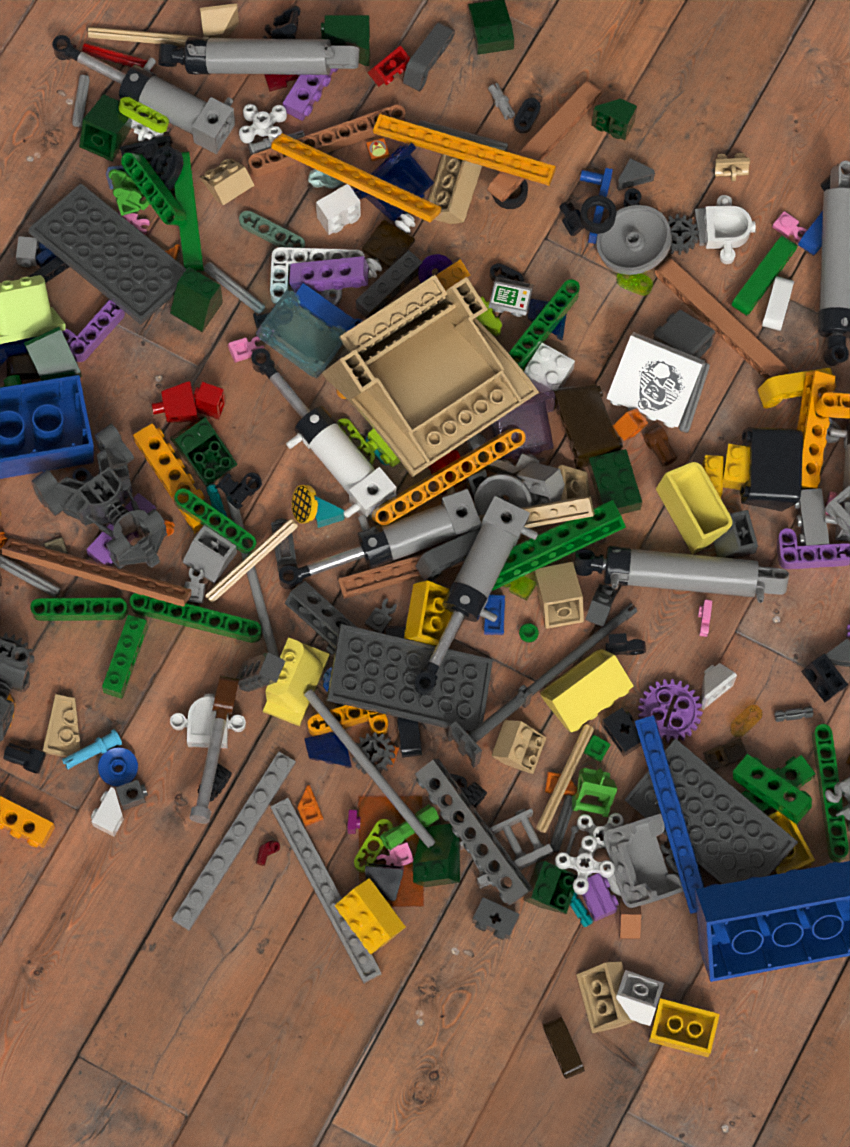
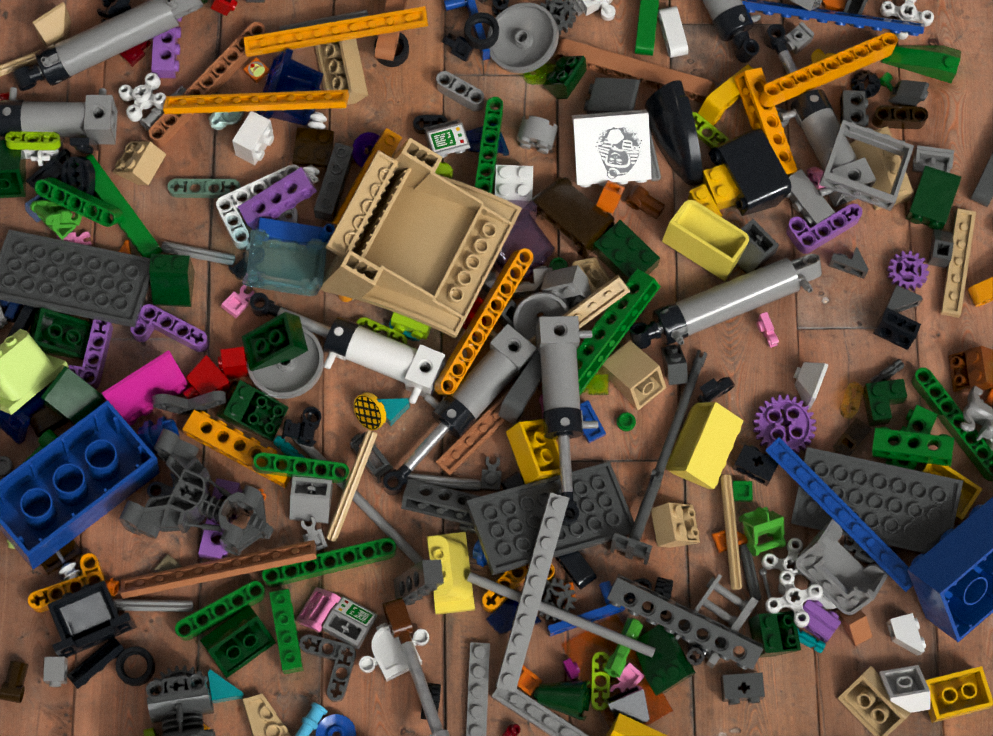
camera: 30 degrees left, 0 degrees up
(42, 677) = (221, 689): none -> teal slope
(74, 297) = (60, 333): none -> dark green slope
(79, 643) = (238, 641): none -> dark green slope
(102, 420) = (150, 433): none -> blue piece
(120, 383) = (134, 393): none -> dark pink slope
(147, 417) = (186, 406): none -> dark grey beam
(156, 700) = (336, 656): none -> dark grey beam
(162, 651) = (317, 609): none -> bright pink plate
(173, 344) = (171, 331): none -> medium lavender beam
(183, 677) = (349, 622): none -> light grey slope
(185, 141) = (84, 145): none -> black plate
(255, 399) = (275, 342): none -> dark green slope
(255, 422) = (292, 376): none -> light grey dish
(334, 842) = (565, 697): none -> dark green cone
(338, 601) = (447, 482): none -> light grey axle
(353, 733) = (532, 592): none -> light grey plate
(397, 785) = (592, 616): none -> blue piece
(465, 870) = (692, 658): none -> black bush
(549, 251) = (455, 83): none -> light grey beam
(549, 460) = (558, 263): none -> green plate
(595, 333) = (537, 134): none -> light grey brick
(652, 294) = (565, 76): none -> dark green slope
(670, 949) = (906, 634): none -> white slope
(723, 394) = (675, 131): none -> black panel
(754, 420) = (706, 125): none -> lime beam
(774, 730) = (879, 397): none -> dark green brick
(820, 601) = (854, 266): none -> dark grey slope

